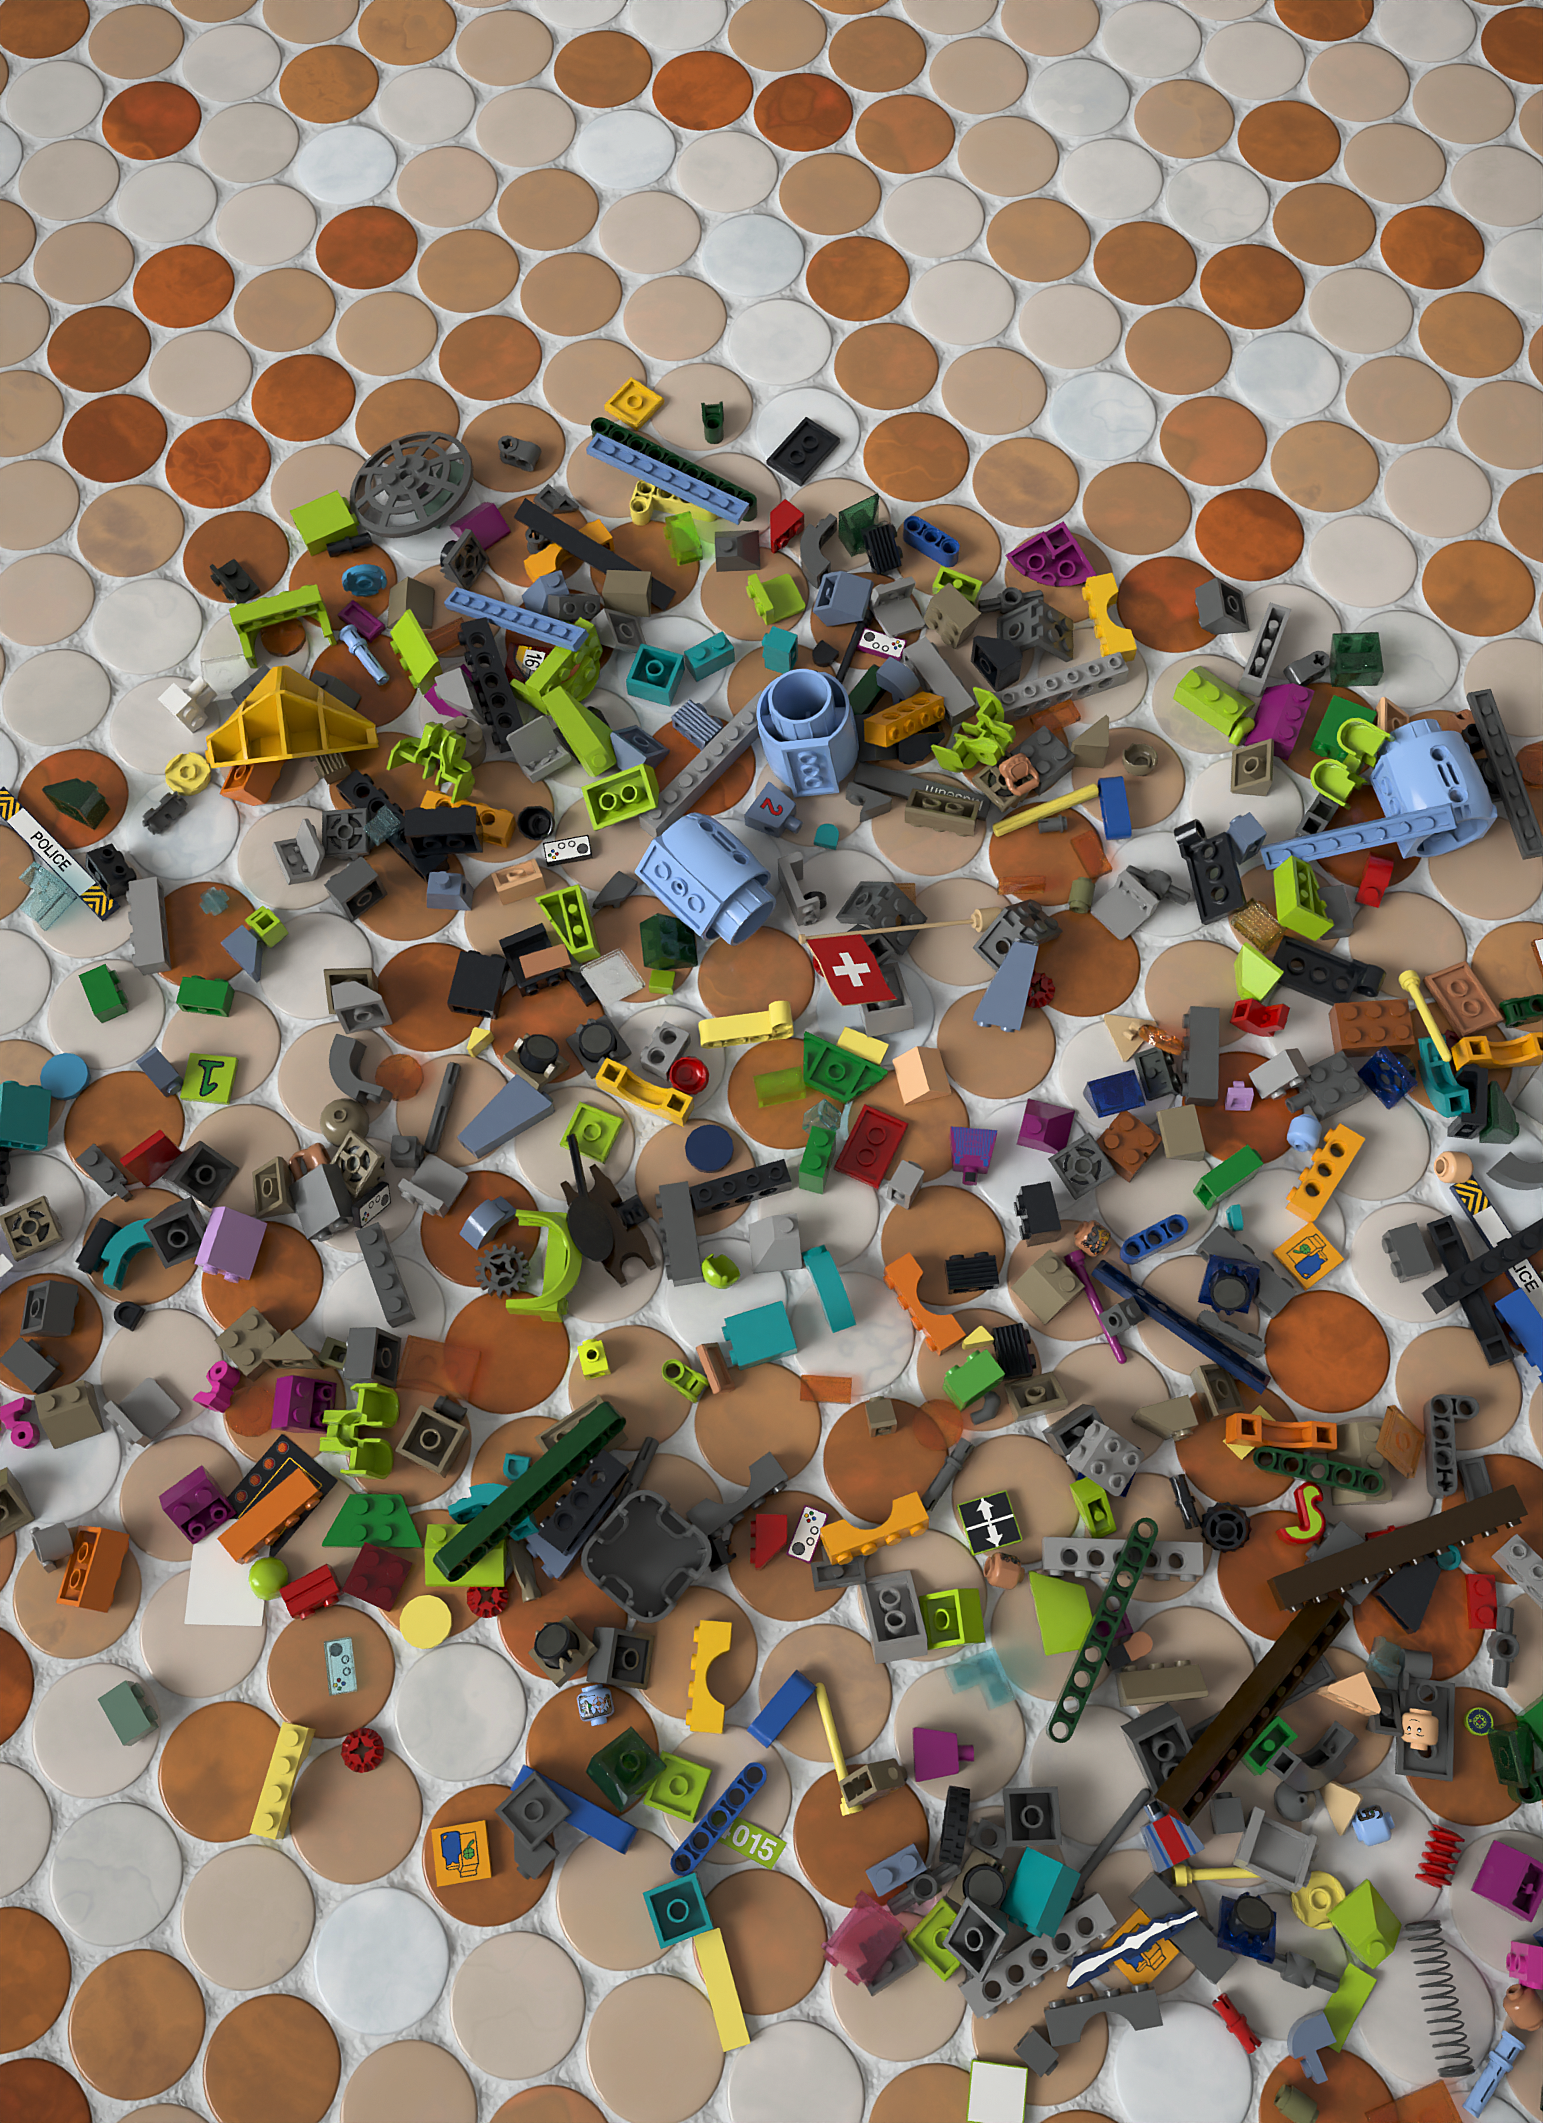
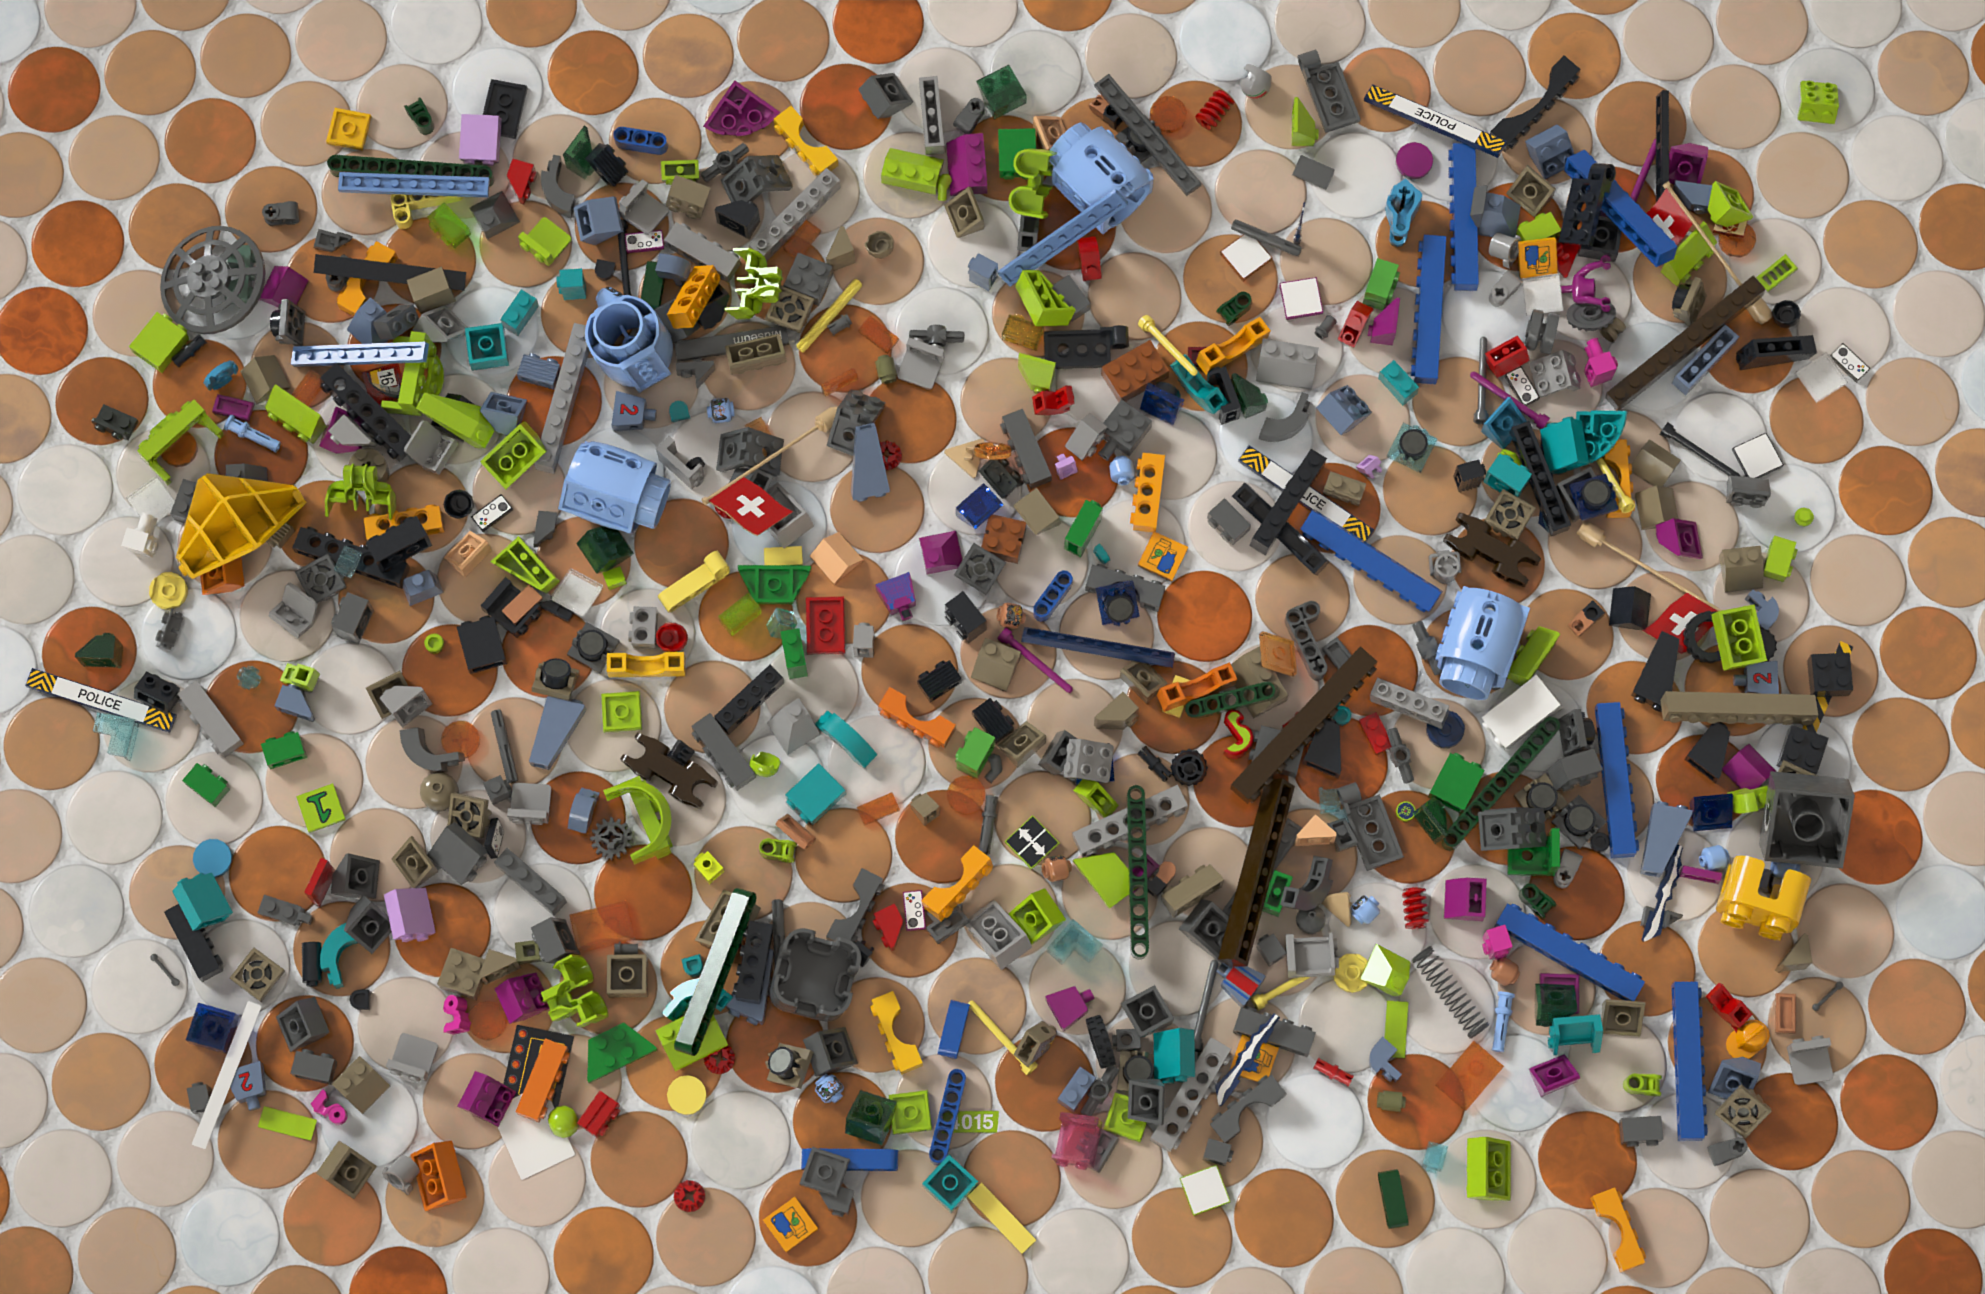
camera: 30 degrees left, 5 degrees up
(129, 1712) = (519, 1251): sand green brick -> none
(161, 1072) = (286, 820): sand blue slope -> none
(275, 1799) = (647, 1239): light yellow arch -> none
(312, 1157) = (433, 827): nougat piece -> none
(340, 1666) = (644, 1152): clear light blue tile -> none
(377, 1576) = (637, 1082): dark red plate -> none
(430, 959) = (434, 643): none -> lime tile
(479, 1041) = (505, 683): light yellow slope -> none
(523, 1569) = (735, 1028): dark tan piece -> none
(585, 1217) = (653, 772): black piece -> none
(709, 1148) = (711, 682): dark blue tile -> none
(762, 466) = (480, 139): none -> lavender brick
(873, 855) = (720, 410): none -> light blue head
(978, 1338) = (966, 722): light yellow slope -> none
(1017, 768) = (794, 298): nougat piece -> none
(1114, 808) = (878, 291): blue beam -> none
(1126, 1314) = (1058, 657): dark grey brick -> none
(1192, 845) = (949, 294): black hinge -> none
(1229, 1333) = (1132, 635): dark grey hinge -> none
(1247, 1927) = (1313, 1009): piece -> none
(1302, 1972) = (1357, 1021): dark grey axle -> none
(1420, 1728) = (1367, 833): light nougat head -> none
(1453, 1167) = (1234, 446): light nougat head -> none
(1463, 999) = (1189, 319): nougat tile -> none

